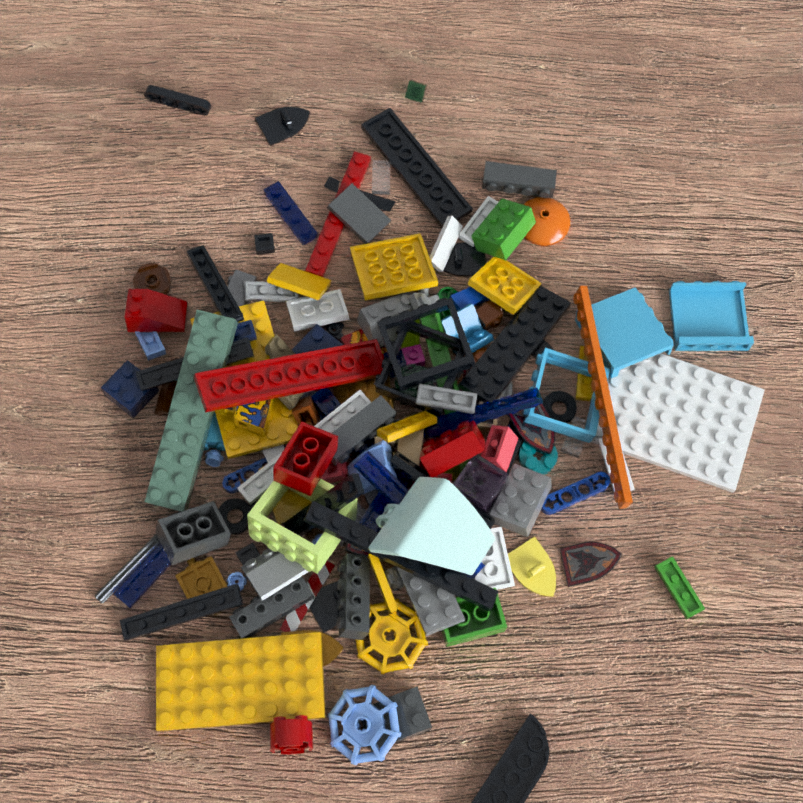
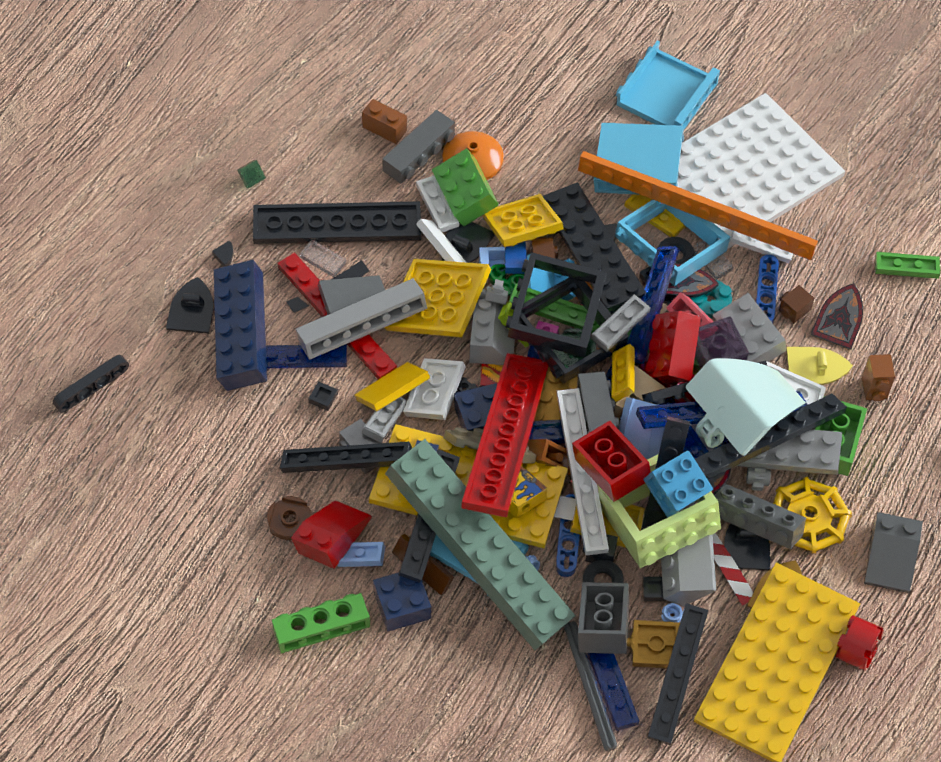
camera: 55 degrees left, 10 degrees down
(101, 368) = (312, 632): none -> bright green brick
(261, 614) = (722, 604): dark grey brick -> none
(281, 157) = (240, 325): none -> dark blue brick
(310, 516) = (678, 483): none -> dark azure bracket
(336, 227) = (361, 318): none -> light grey brick
(339, 115) = (224, 253): none -> black tile
(375, 724) = (890, 565): light blue plate -> none
(382, 583) = (761, 484): yellow tile -> none
(456, 281) = (492, 255): none -> light blue panel
(525, 144) = (384, 121): none -> dark orange brick
(546, 620) = (878, 377): none -> dark orange brick
(576, 520) = (795, 304): none -> reddish brown brick

